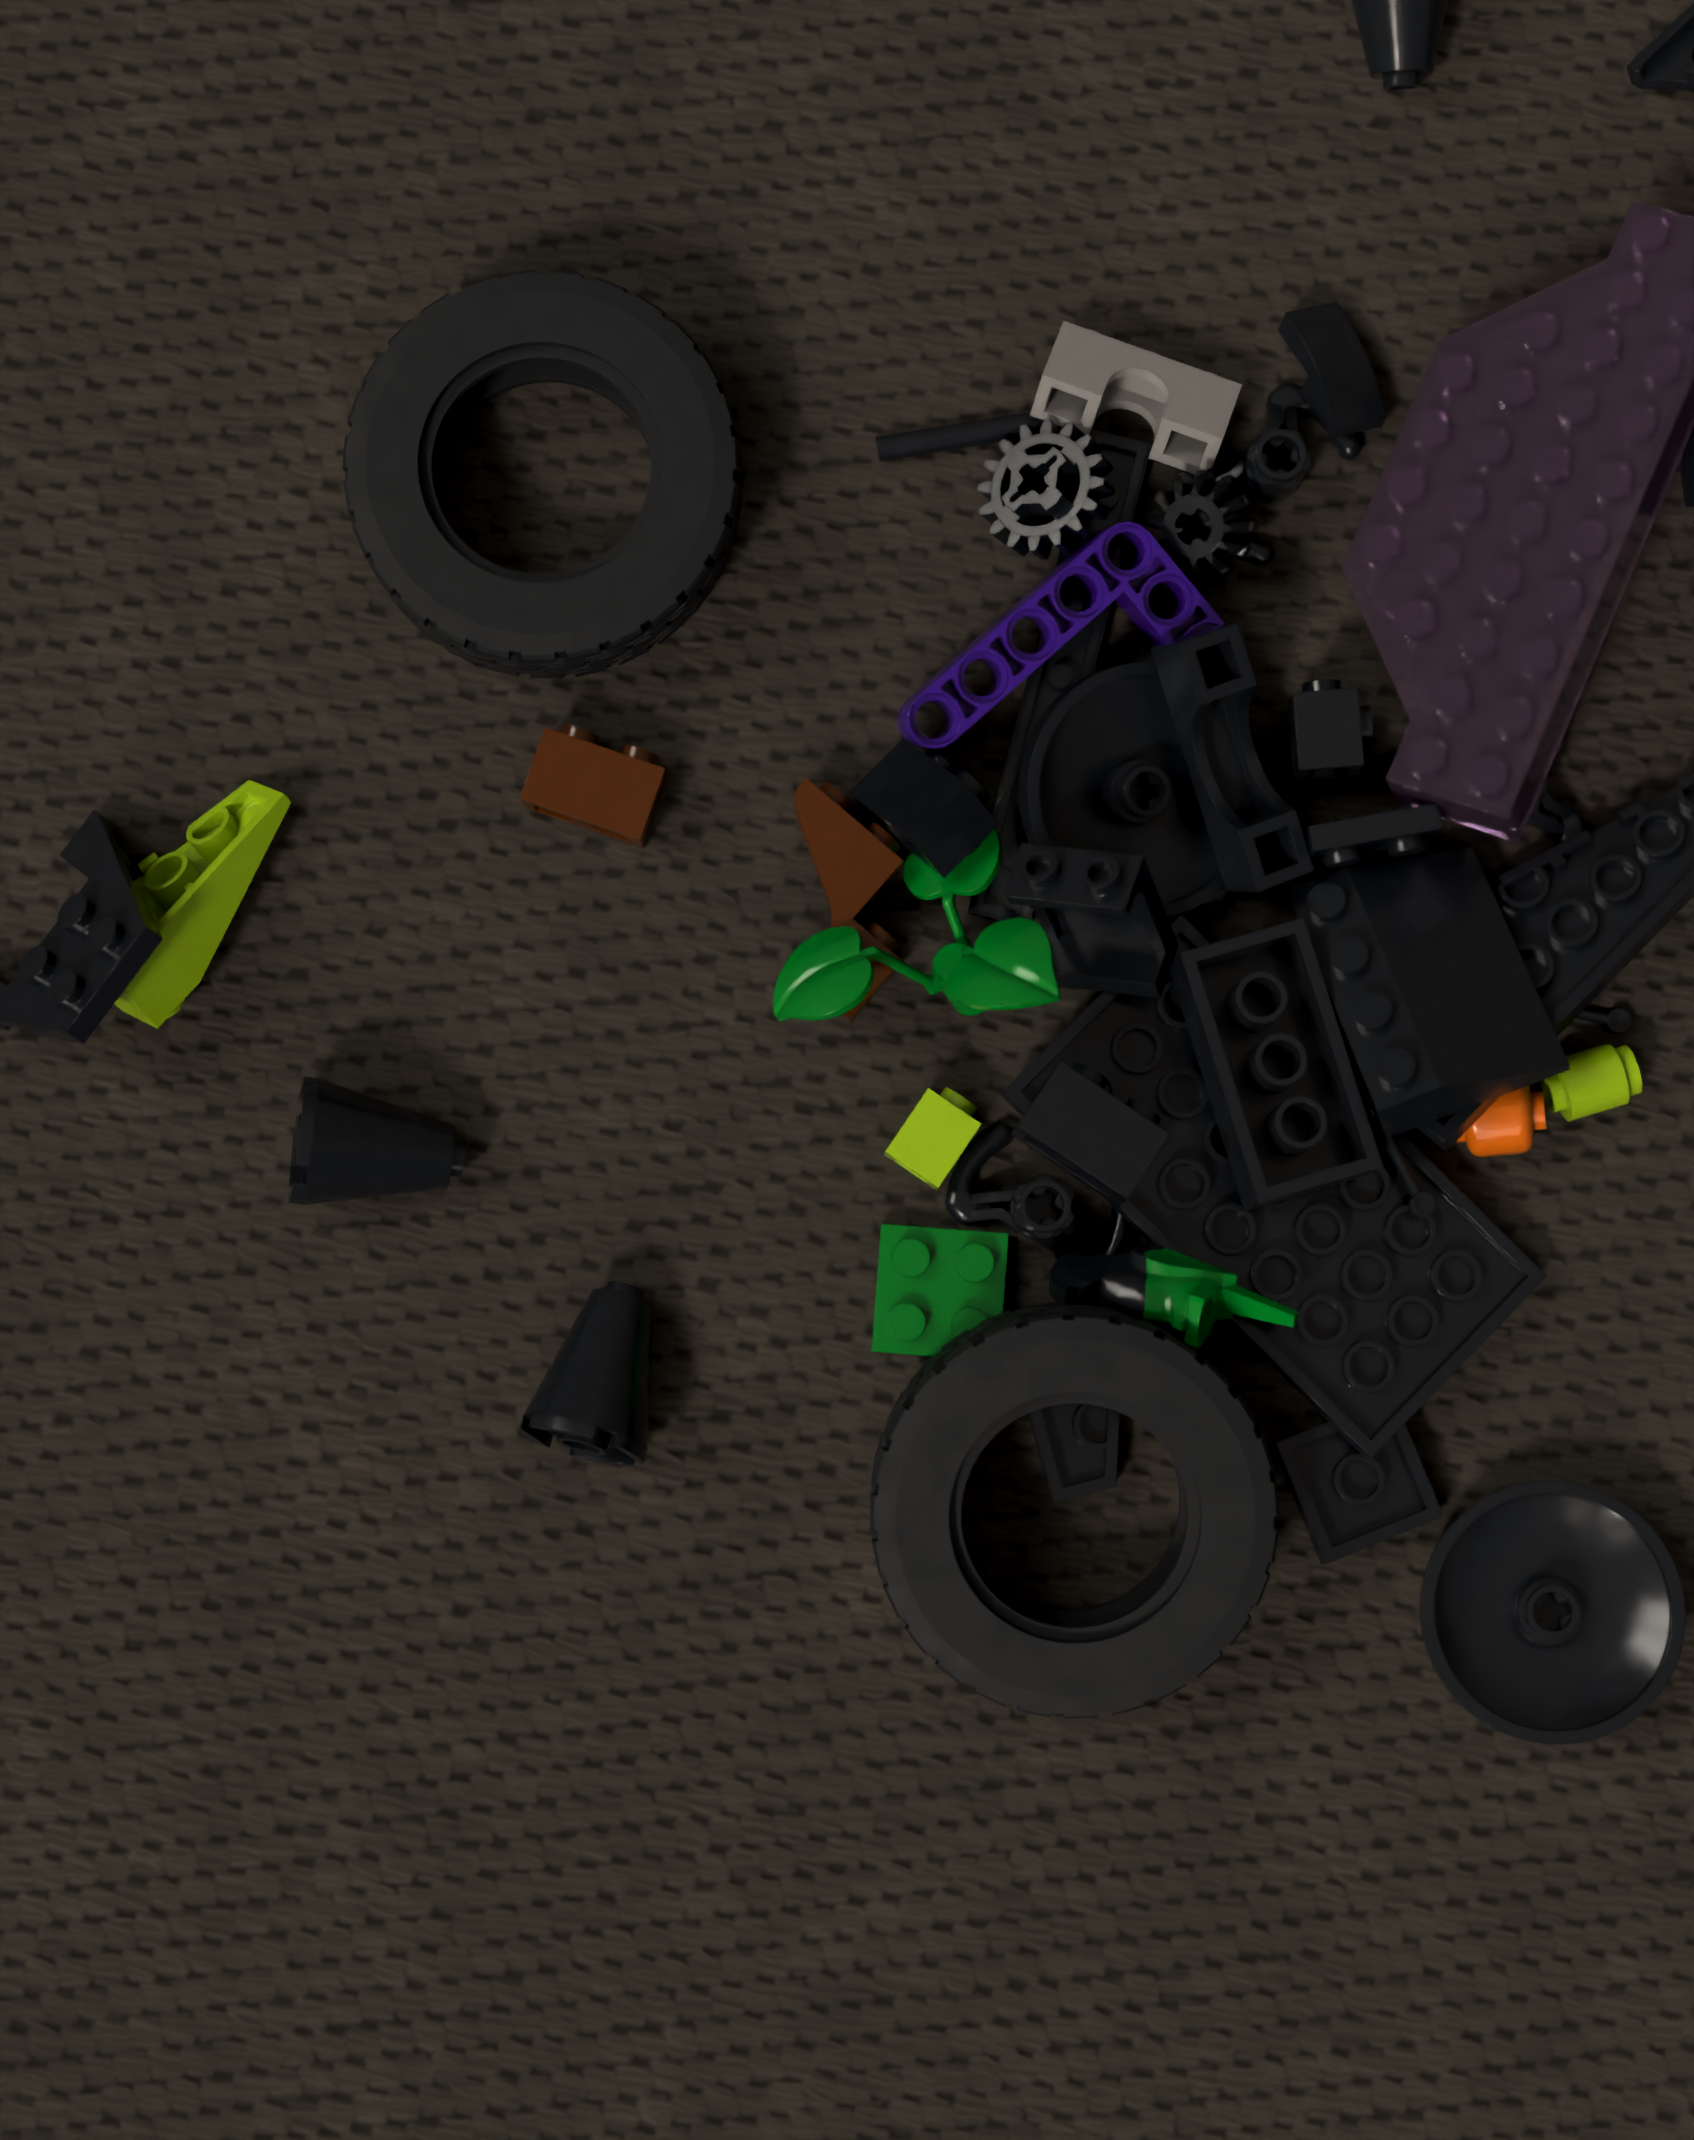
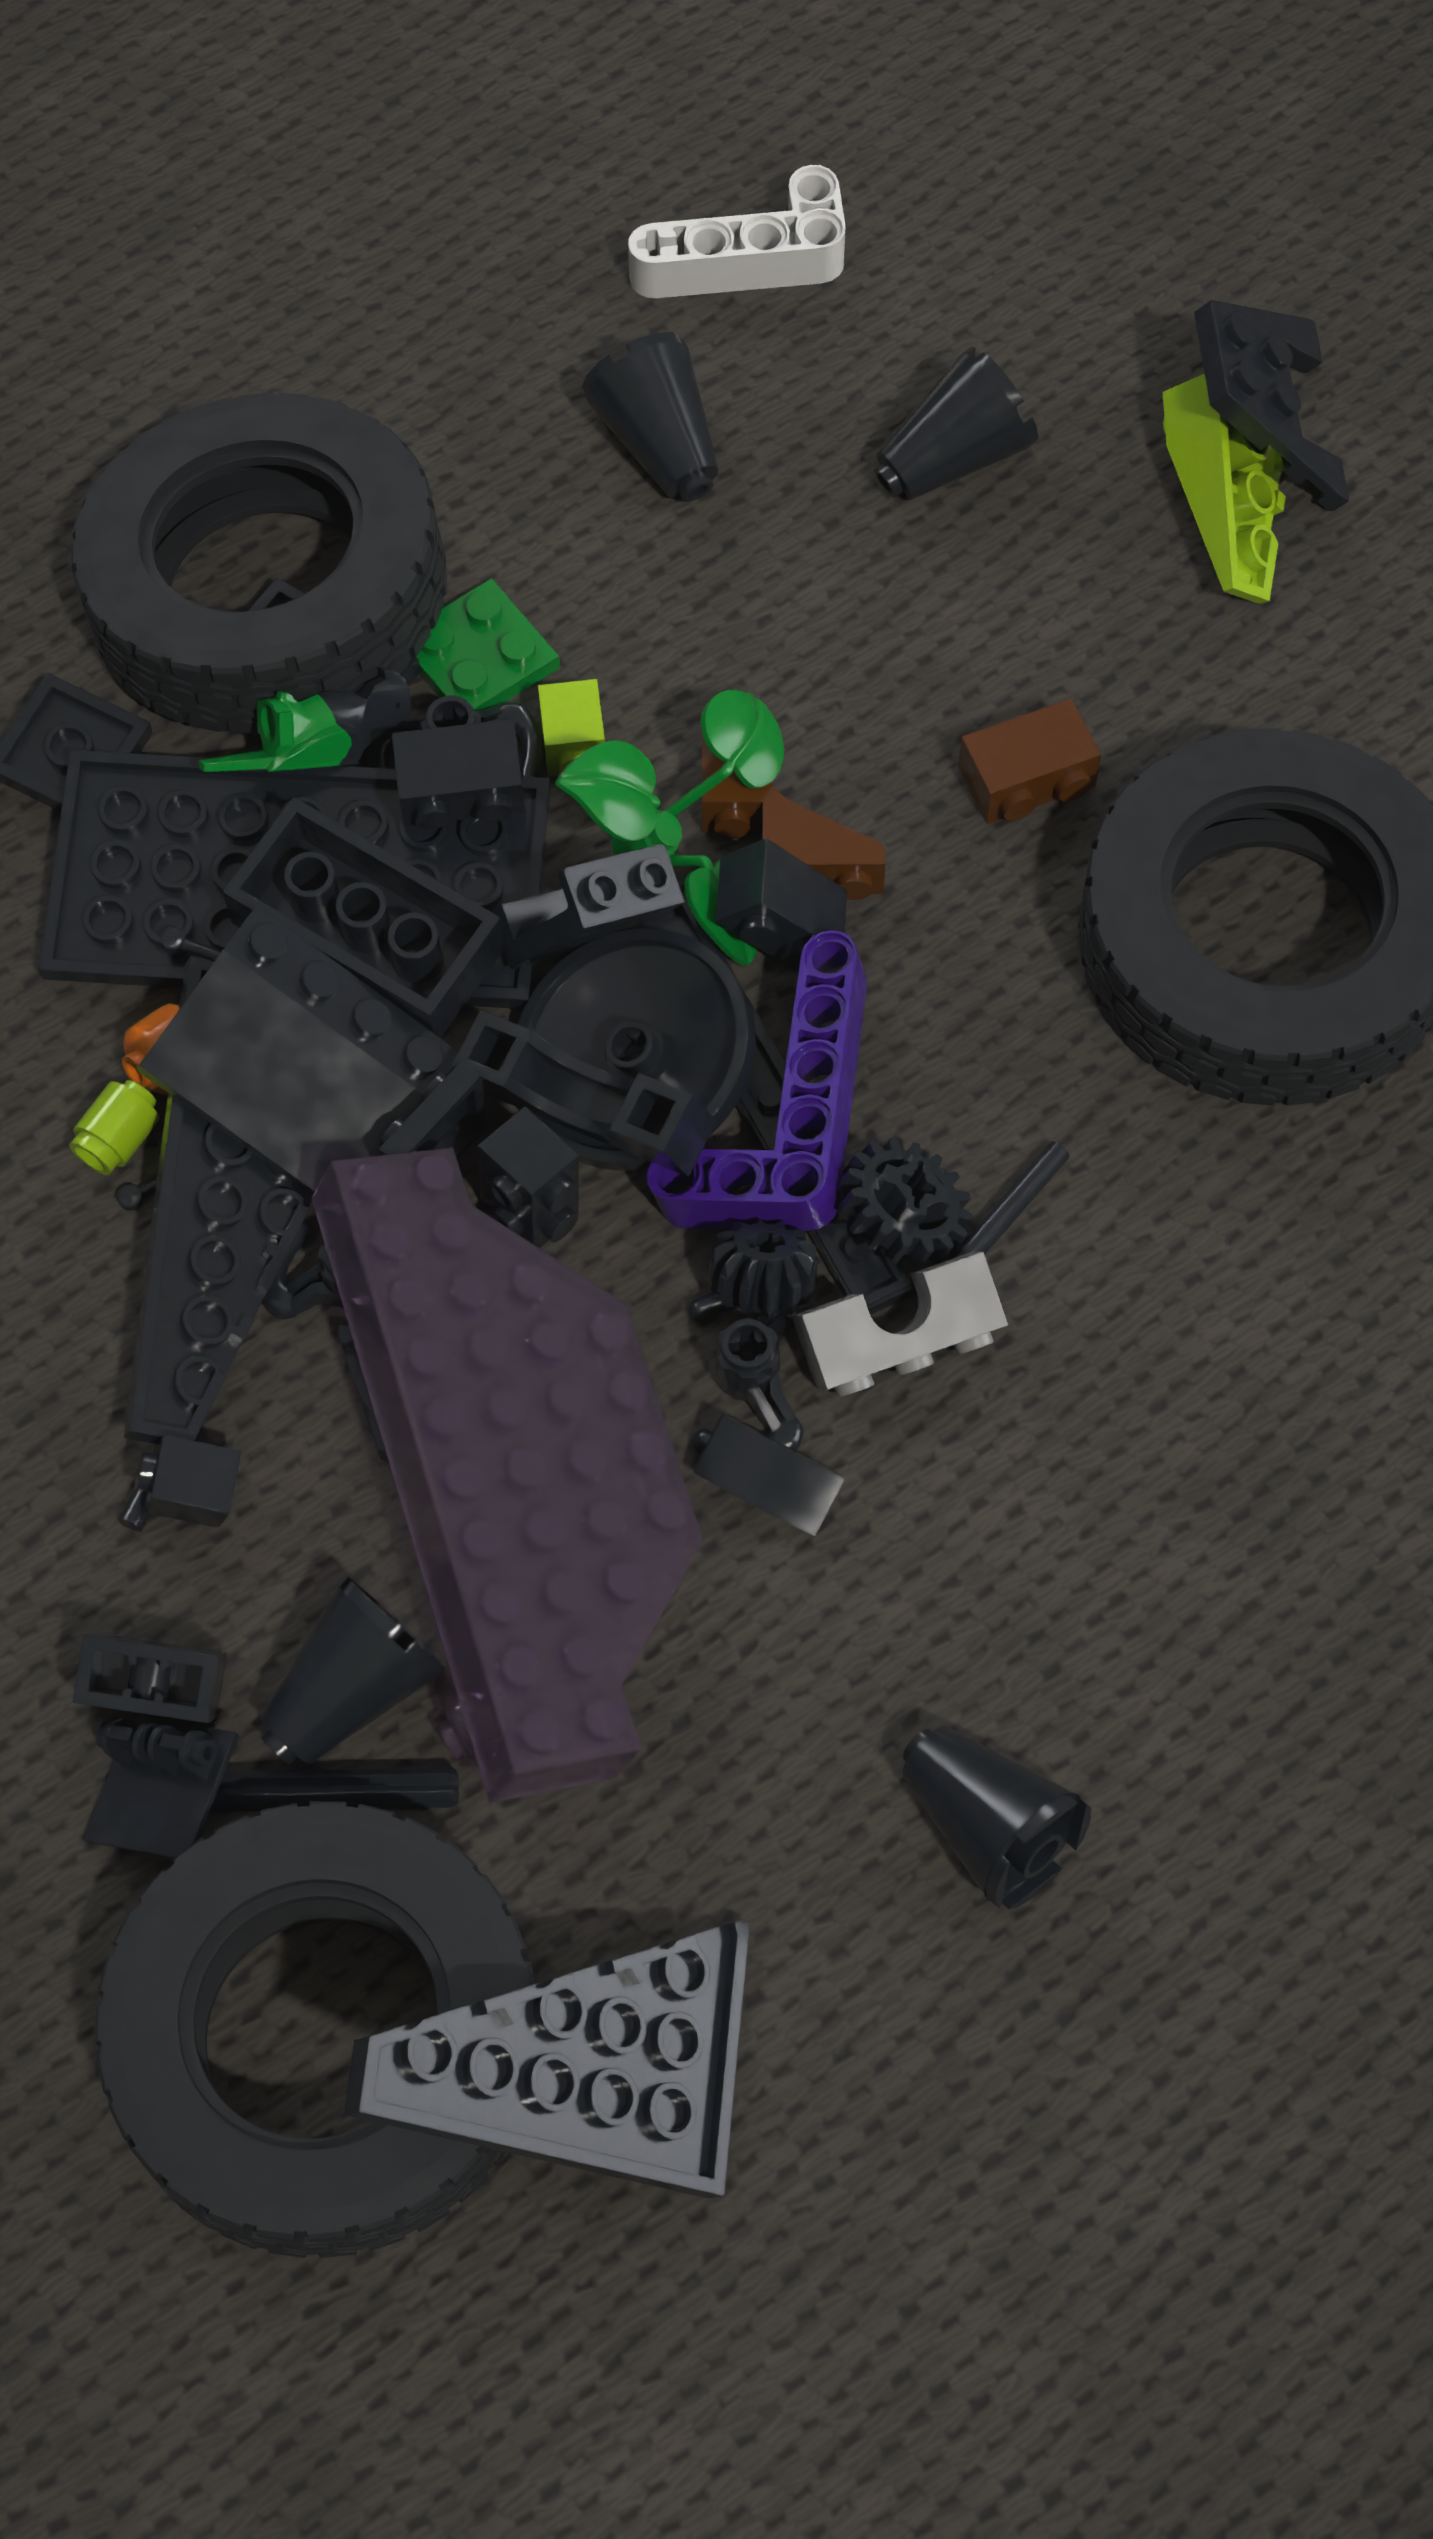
camera: 140 degrees right, 20 degrees down
(362, 1522) = (747, 249): none -> white beam

